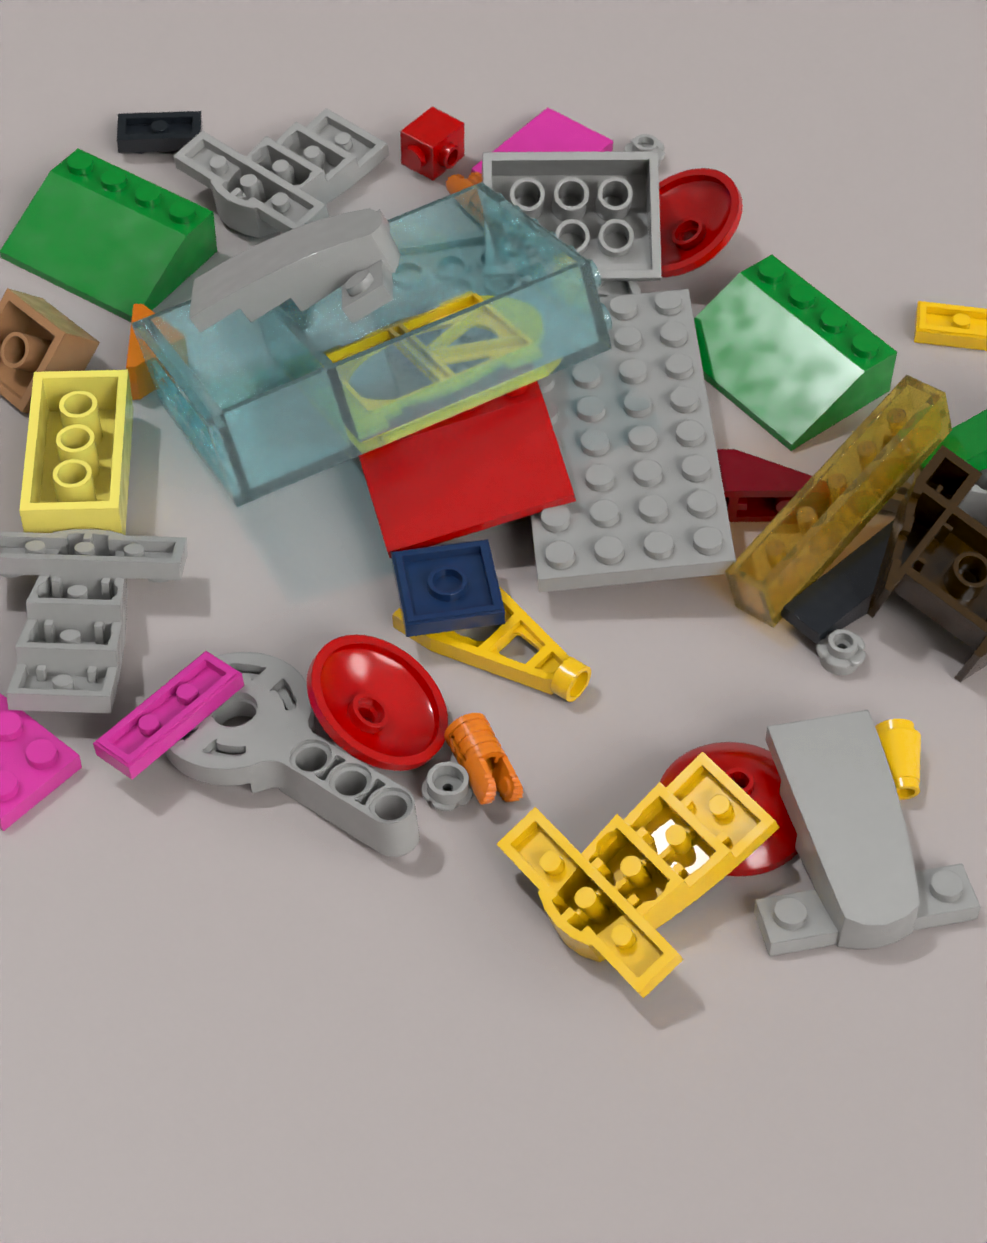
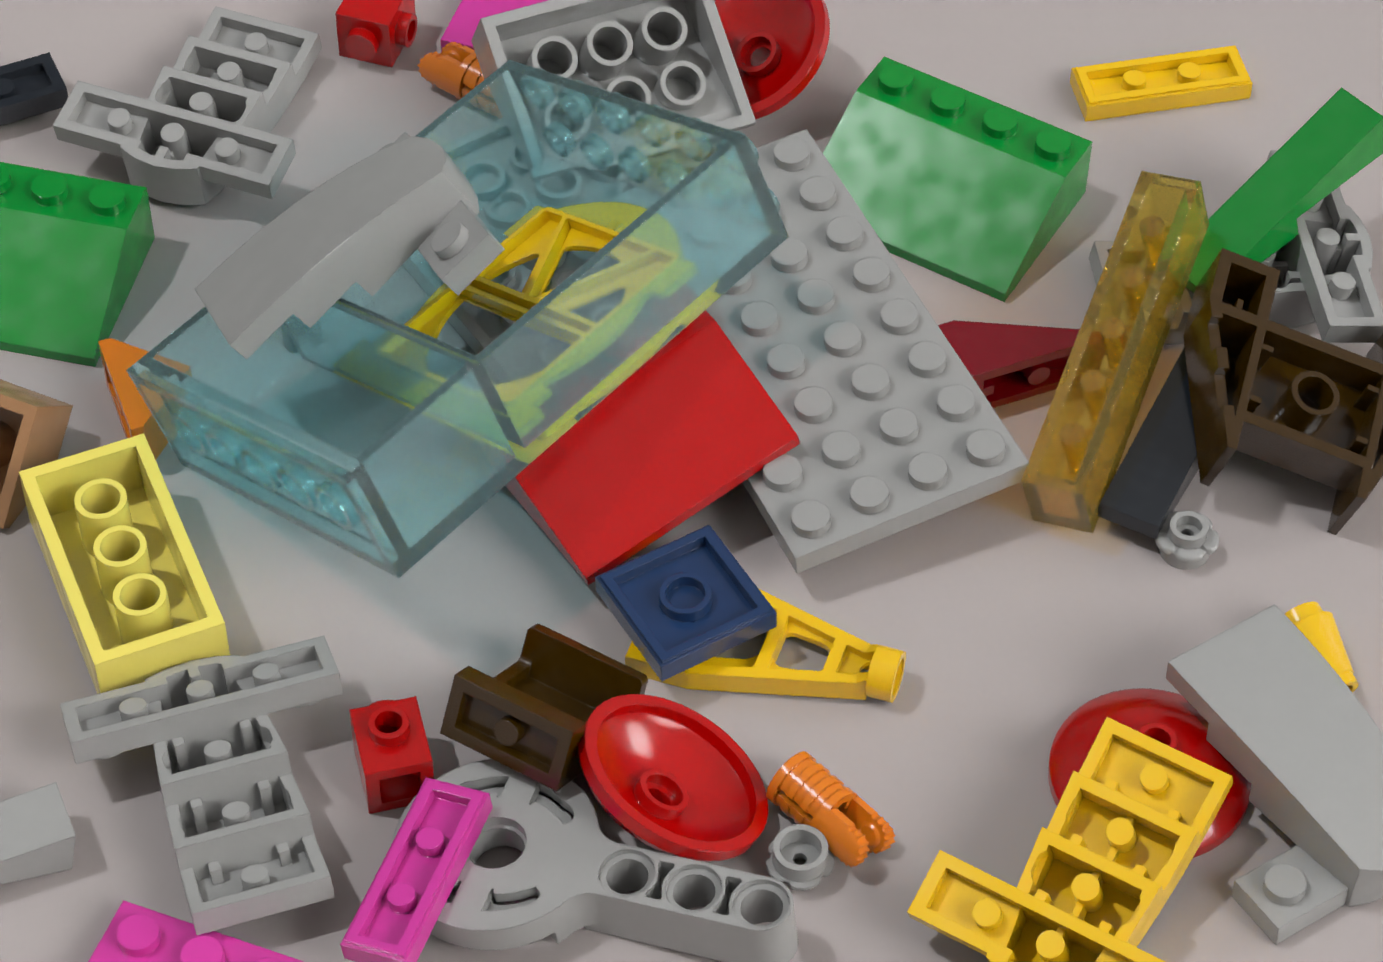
camera: 20 degrees left, 0 degrees up
(197, 625) = (390, 752): none -> red brick
(295, 630) = (538, 706): none -> dark brown panel

